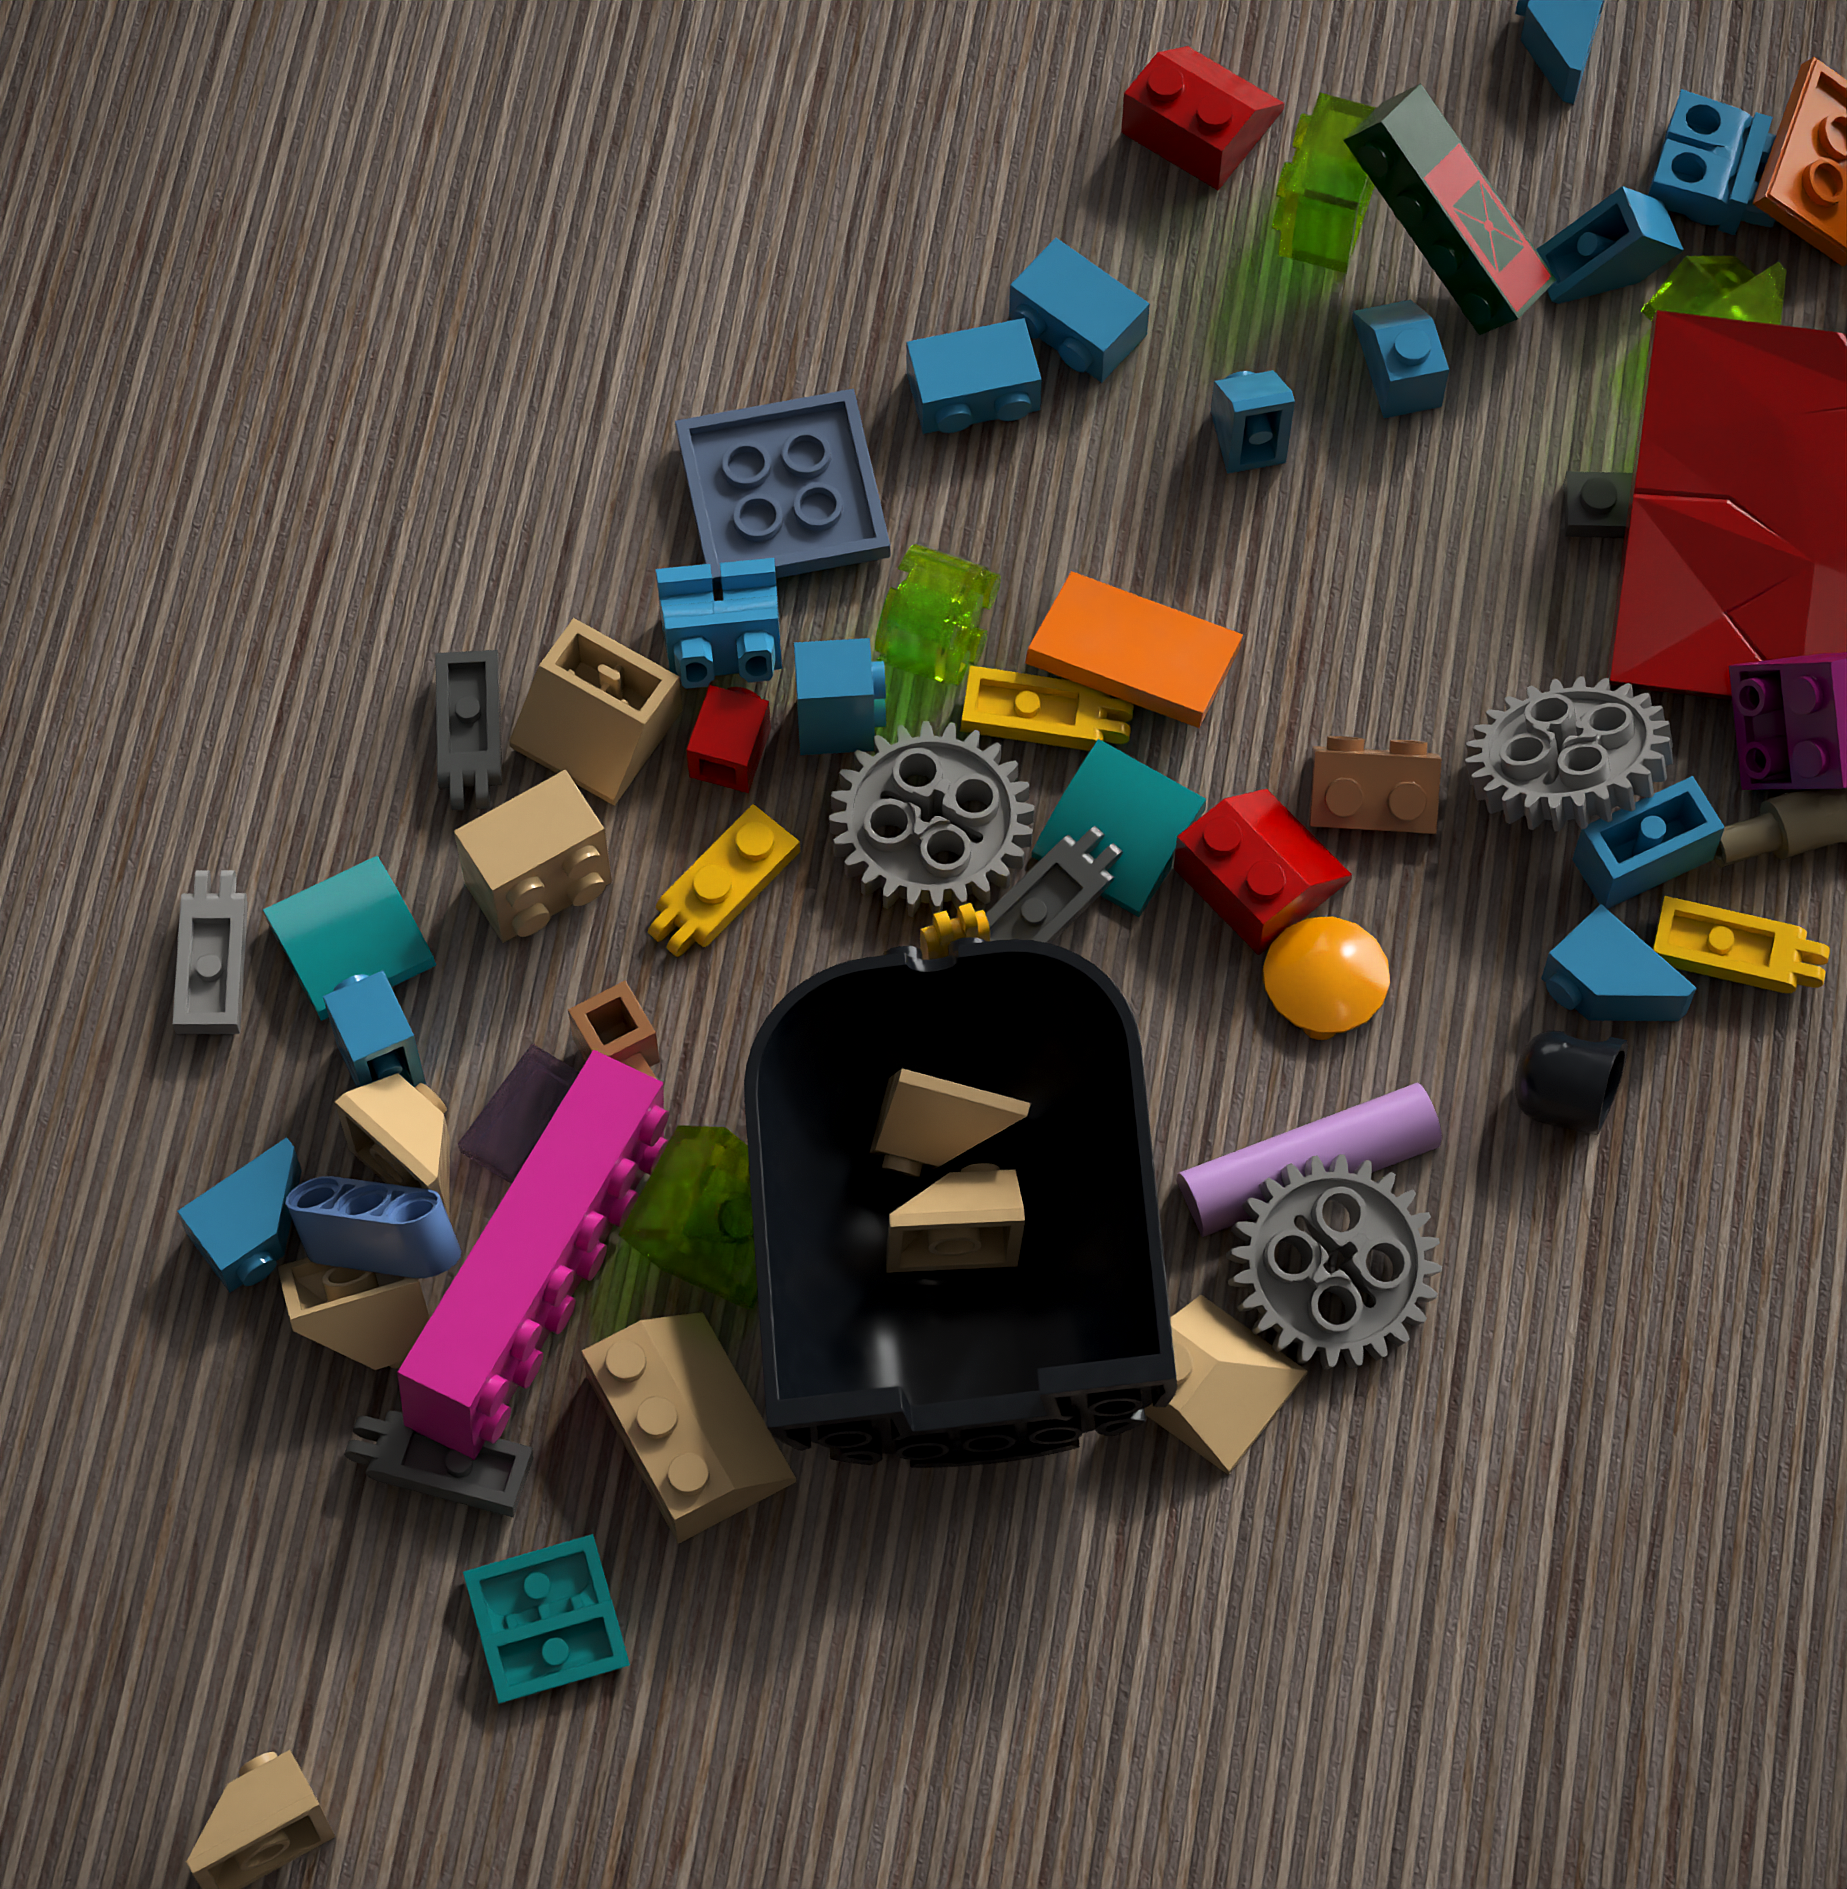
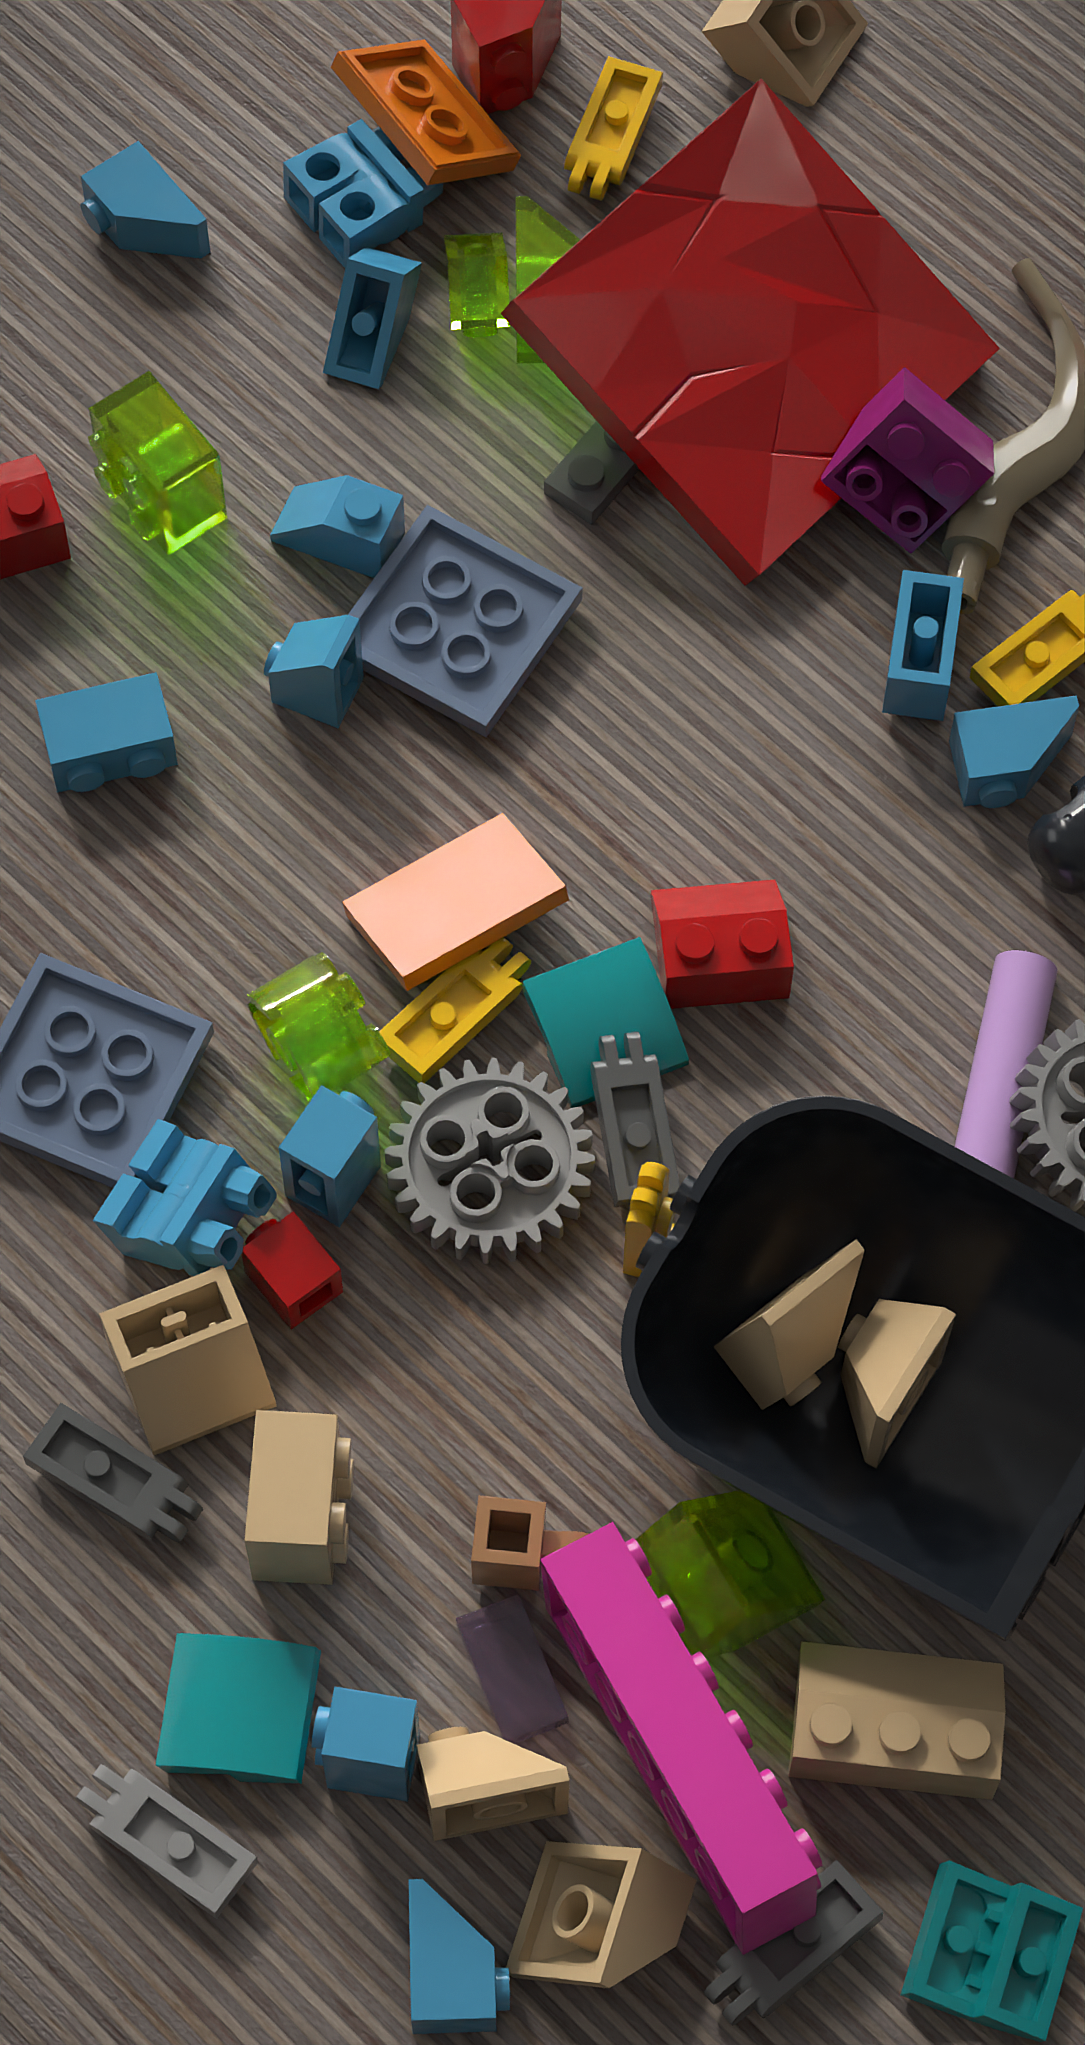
camera: 55 degrees left, 0 degrees up
(373, 1226) = (552, 1857): medium blue beam -> none
(723, 881) = (415, 1362): yellow hinge -> none
(973, 376) = (104, 854): dark azure brick -> none
(1326, 976) = (851, 958): light orange dish -> none
(1375, 787) = (714, 807): medium nougat bracket -> none
(1386, 490) = (460, 619): none -> sand blue plate
(1450, 209) = (266, 392): dark green brick -> none
(1569, 753) = (844, 617): light grey gear -> none

